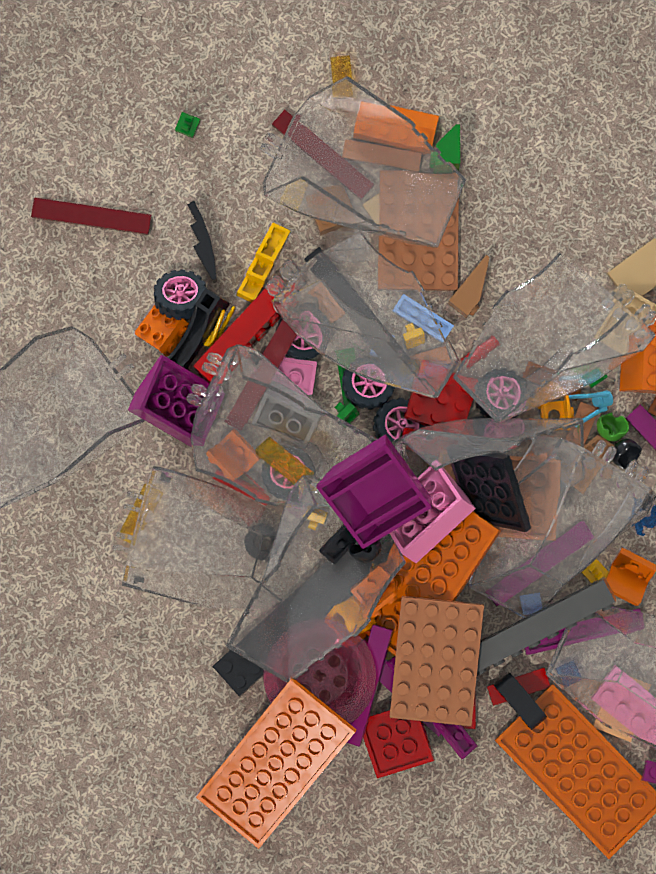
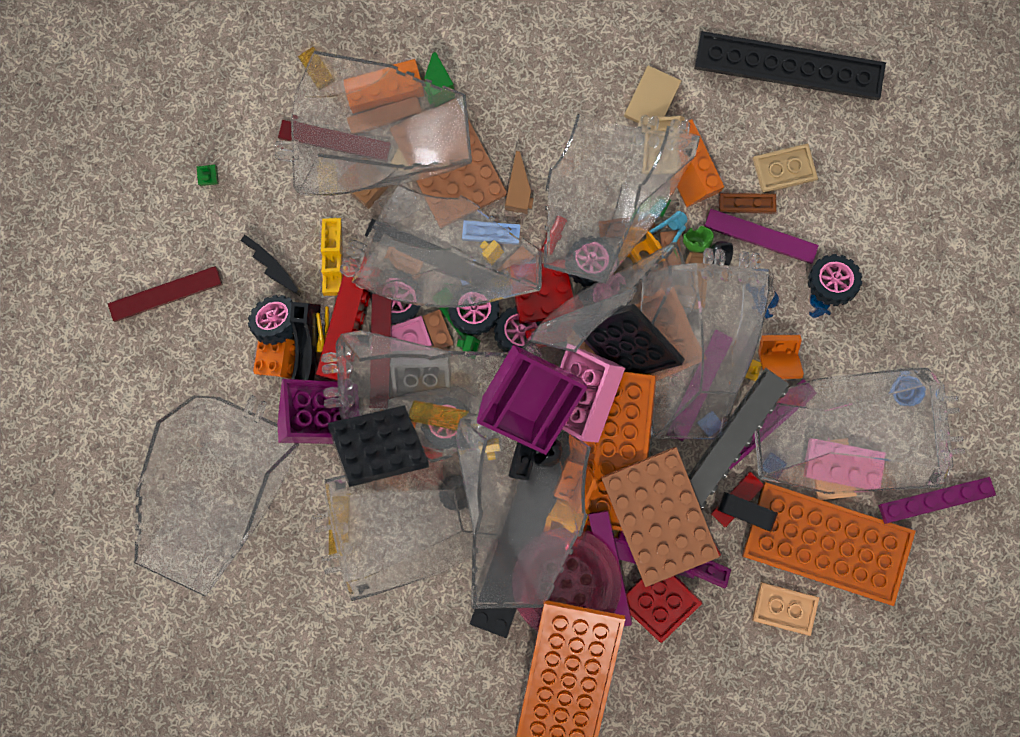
camera: 25 degrees left, 0 degrees up
(216, 460) = (377, 445): none -> black plate
(325, 383) = (437, 329): none -> nougat plate
(508, 809) = (785, 609): none -> light nougat tile

